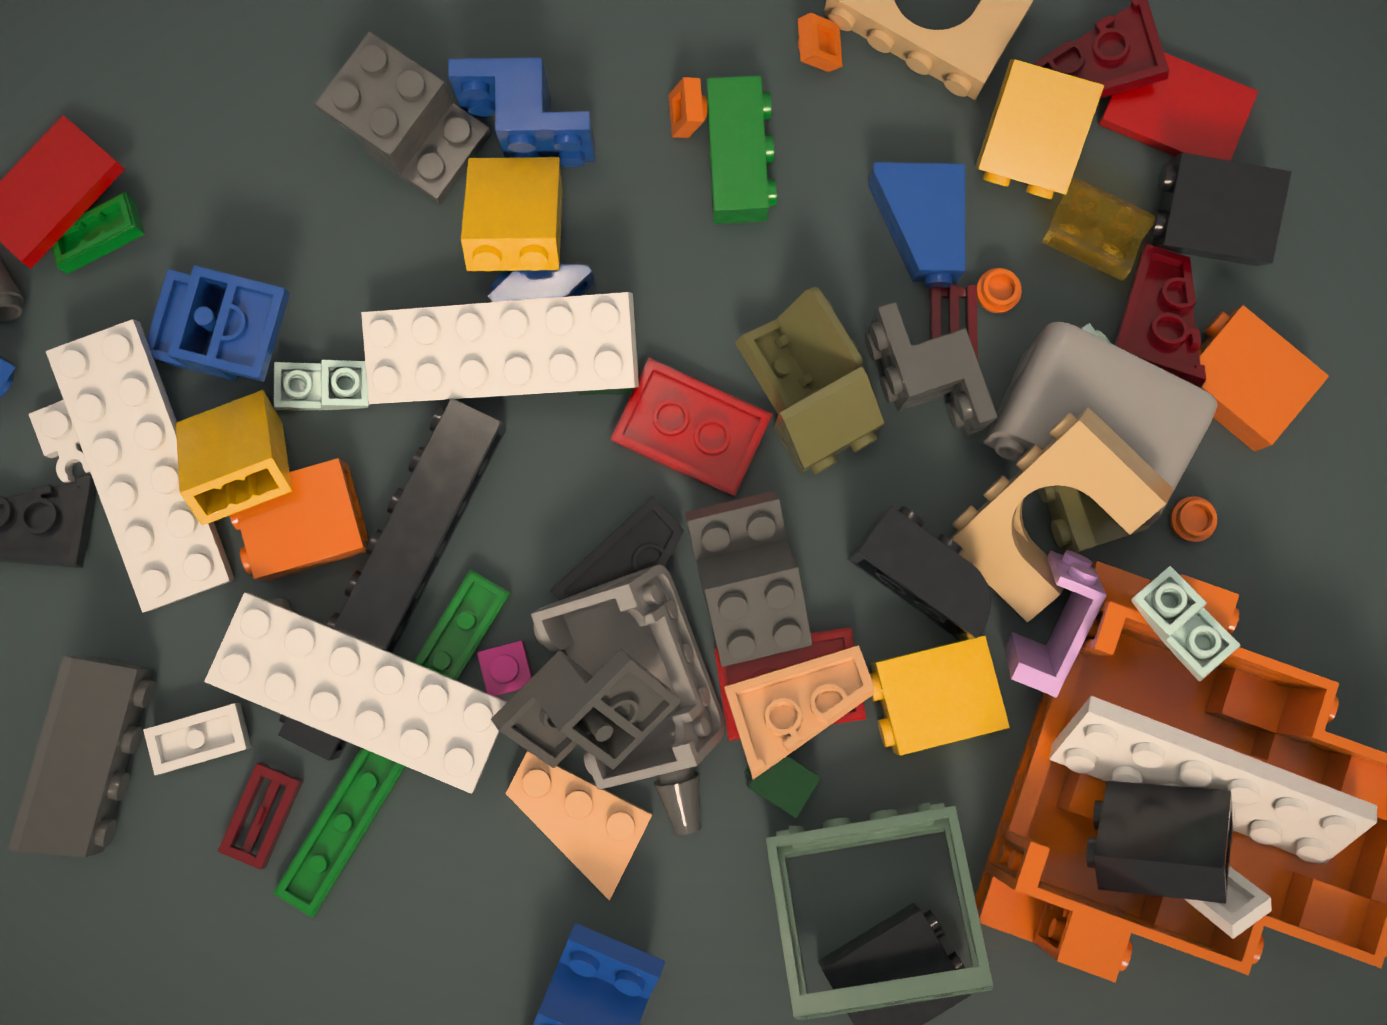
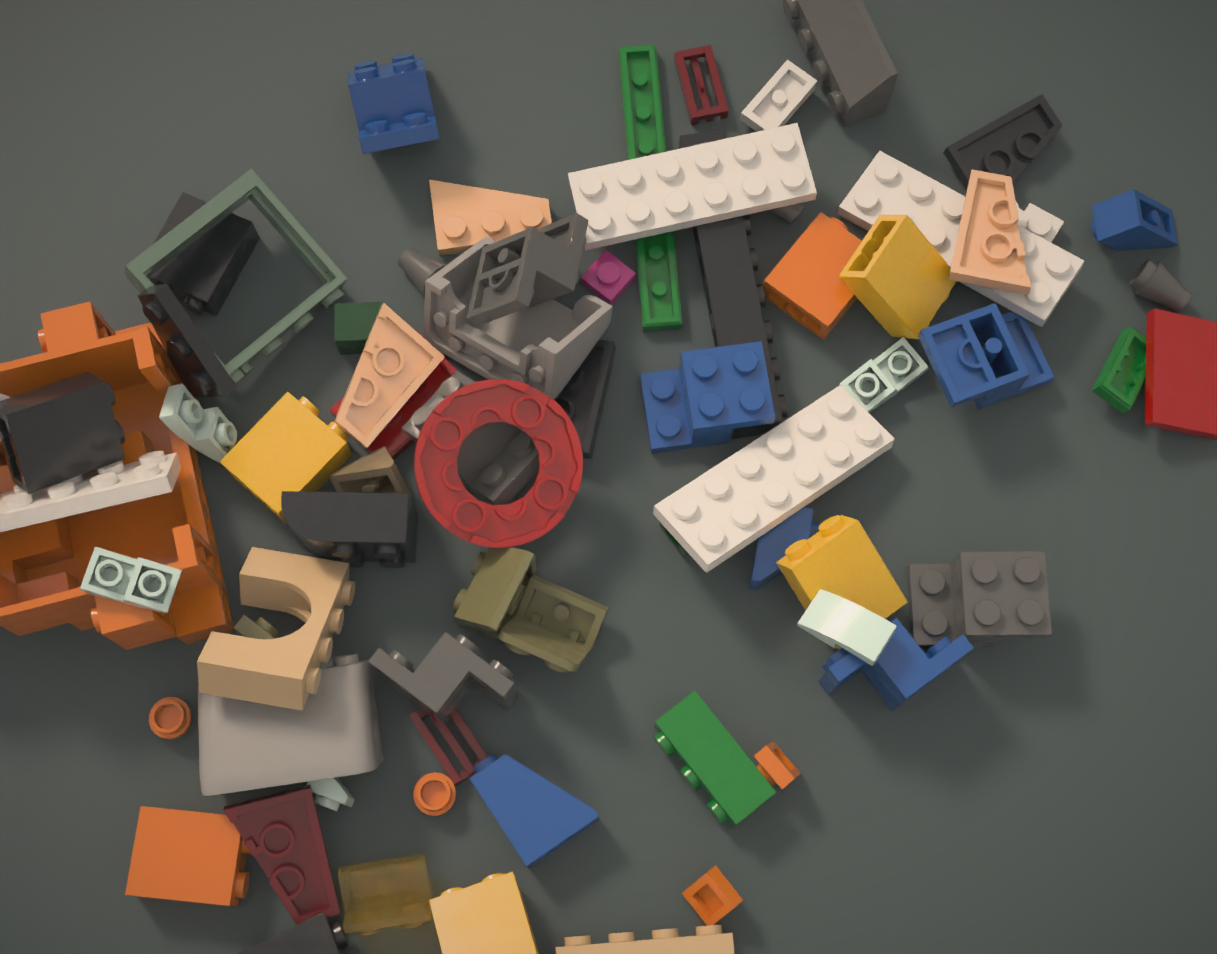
camera: 150 degrees right, 10 degrees down
(119, 429) = (988, 237): none -> light nougat wing
(503, 470) = (707, 397): none -> blue bracket
(545, 150) = (847, 625): none -> light aqua slope
(691, 427) = (604, 531): red tile -> none
(761, 462) = (558, 458): none -> red plate
(872, 610) = (370, 474): none -> dark tan slope
(978, 863) = (184, 344): none -> black wing
(1008, 780) = (200, 428): none -> light aqua slope
(1048, 665) = (228, 525): lavender panel -> none

